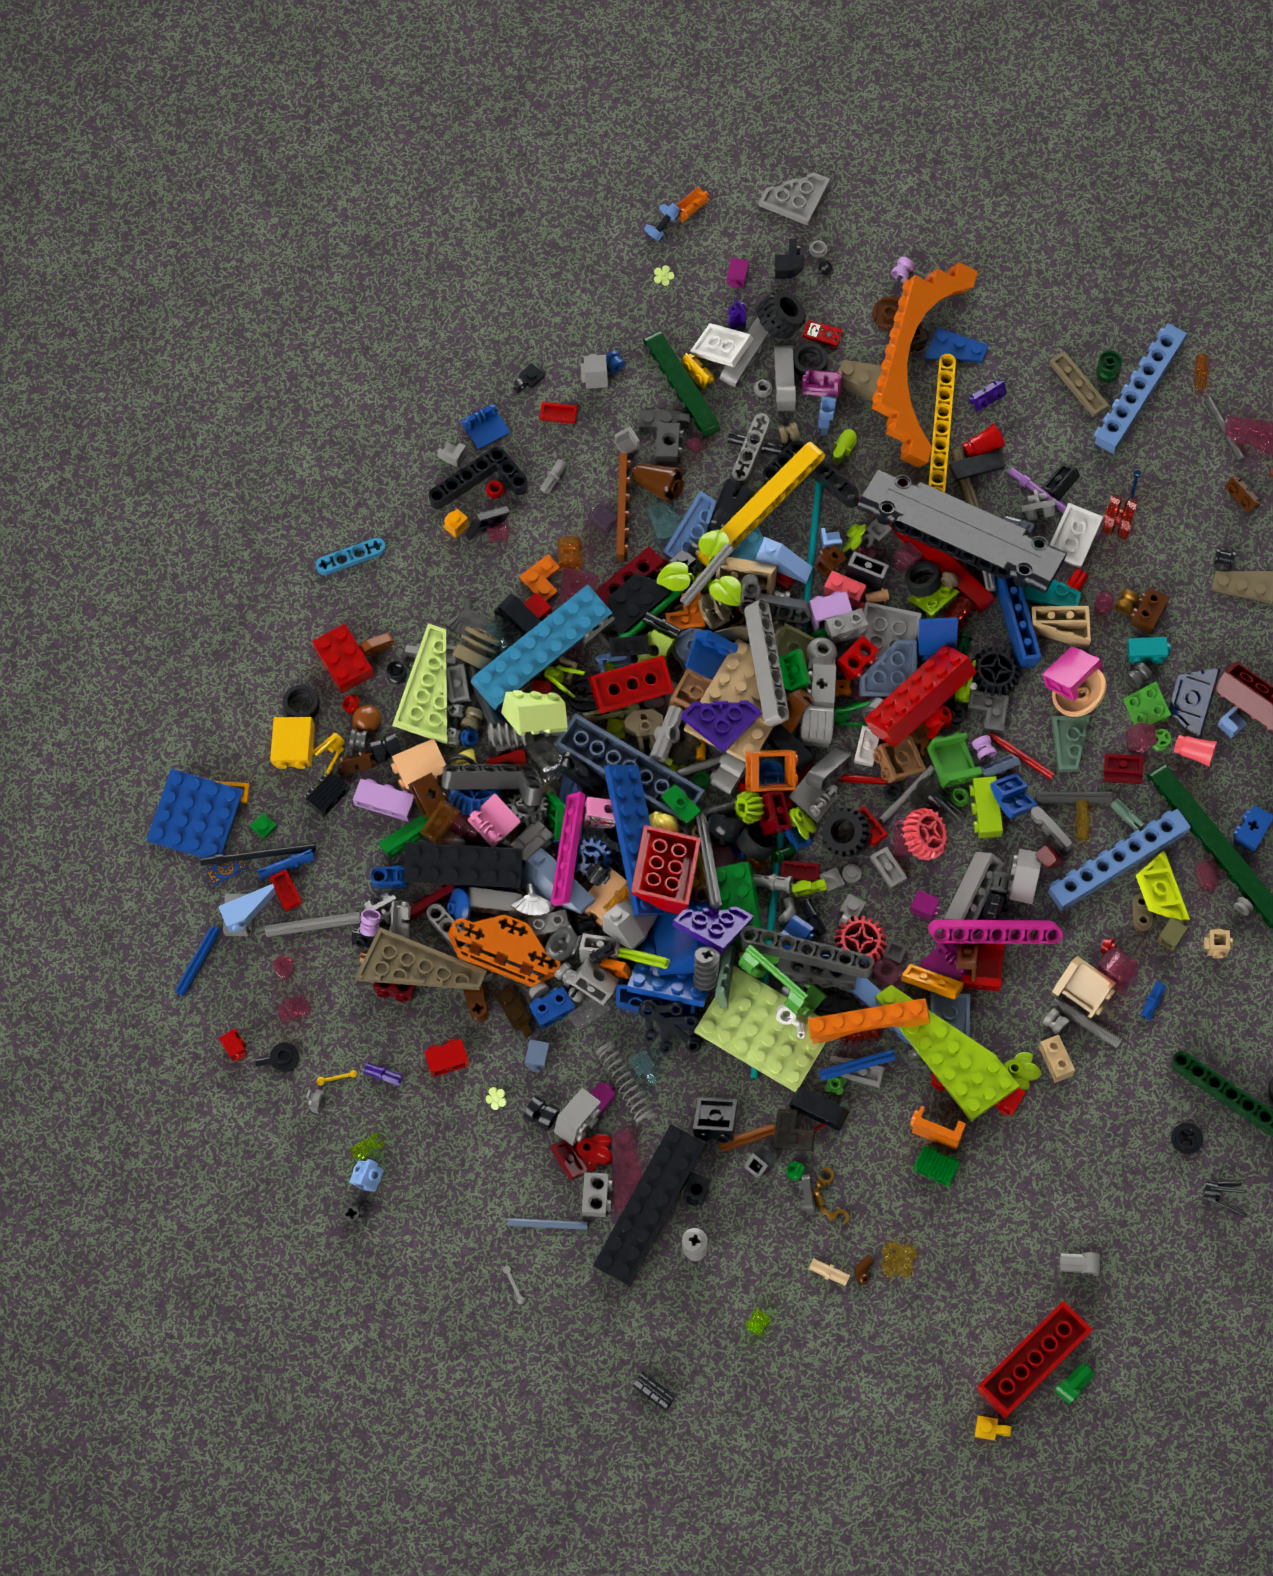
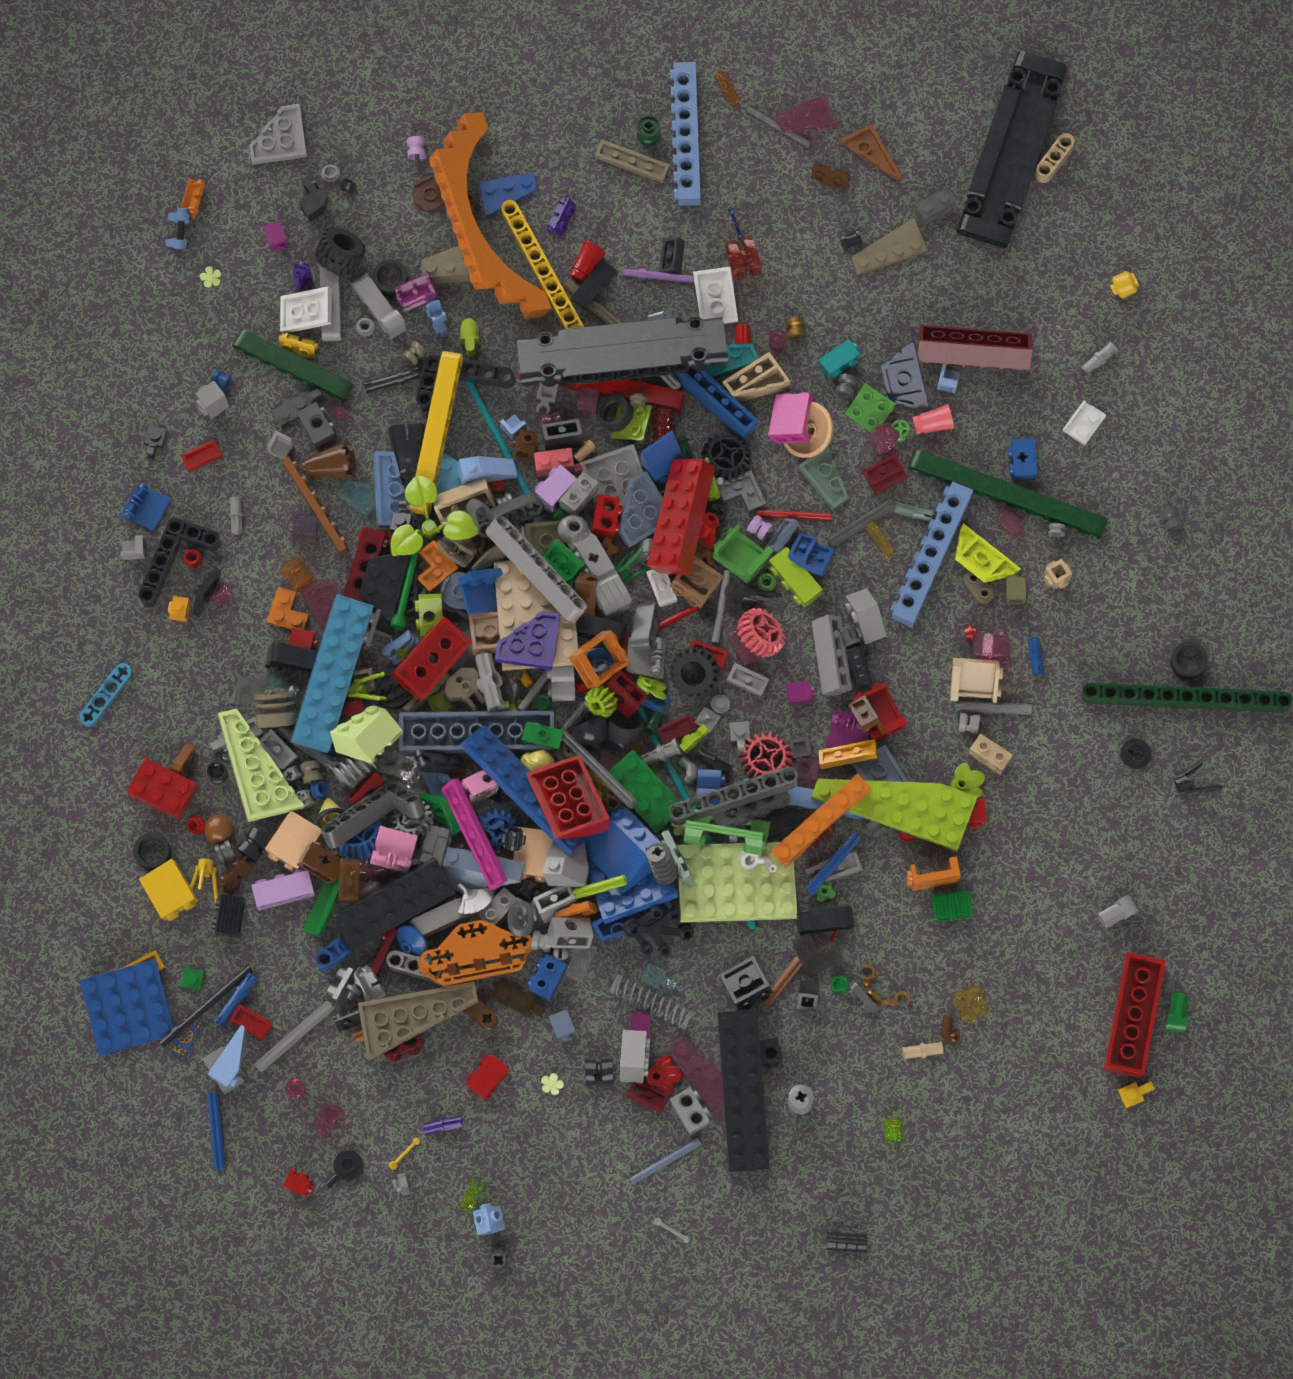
camera: 35 degrees left, 5 degrees up
(370, 920) = (345, 1003): lavender wheel -> none
(538, 990) = (526, 970): light grey tile -> none
(602, 953) = (562, 905): black pin -> none
(618, 897) = (540, 857): clear yellow pin -> none
(629, 646) = (407, 625): black plate -> none
(661, 625) = (422, 590): black pin -> none
(706, 574) = (432, 522): light grey axle -> none
(713, 926) = (643, 823): dark purple plate -> none
(749, 447) = (389, 386): light grey beam -> none
(822, 333) = (384, 247): red tile -> none
(855, 537) = (532, 410): lime plate -> none
(1003, 935) = (864, 686): dark pink beam -> none
(1030, 509) = (663, 295): light grey hips -> none
(1049, 857) = (876, 588): dark red slope -> none
(1050, 827) = (859, 562): light grey hinge -> none
(1150, 610) = (819, 323): reddish brown brick -> none

